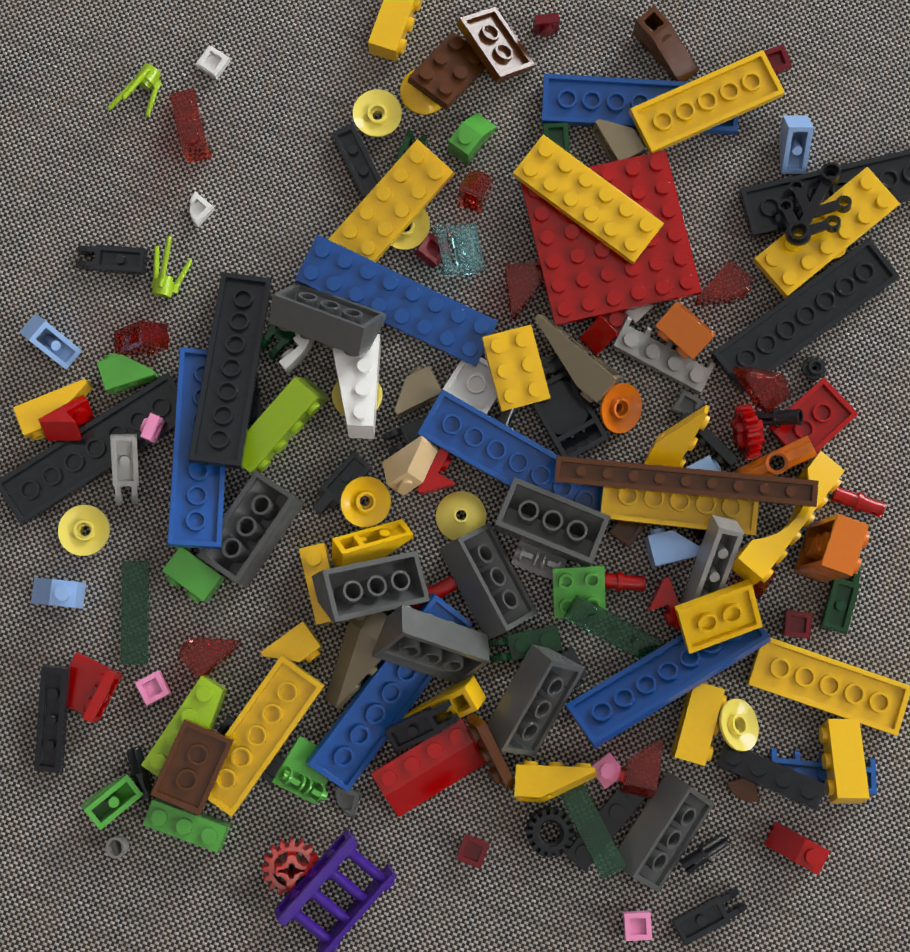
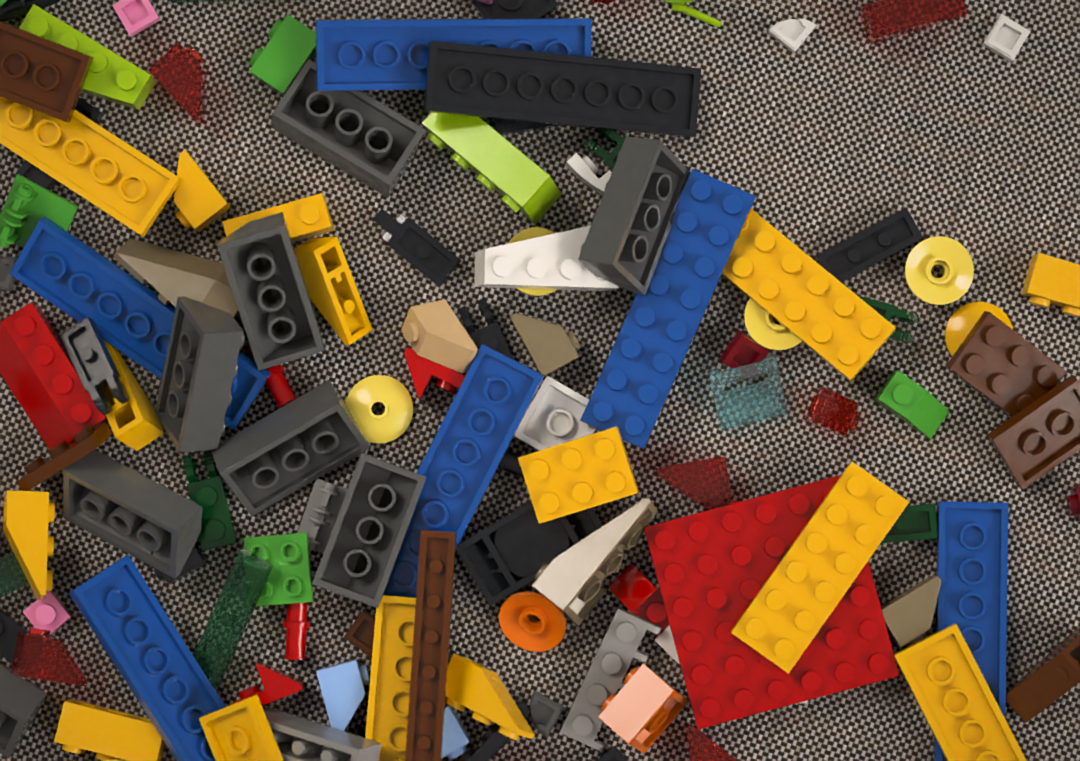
camera: 90 degrees right, 5 degrees up
(376, 508) = (376, 283): yellow dish -> none

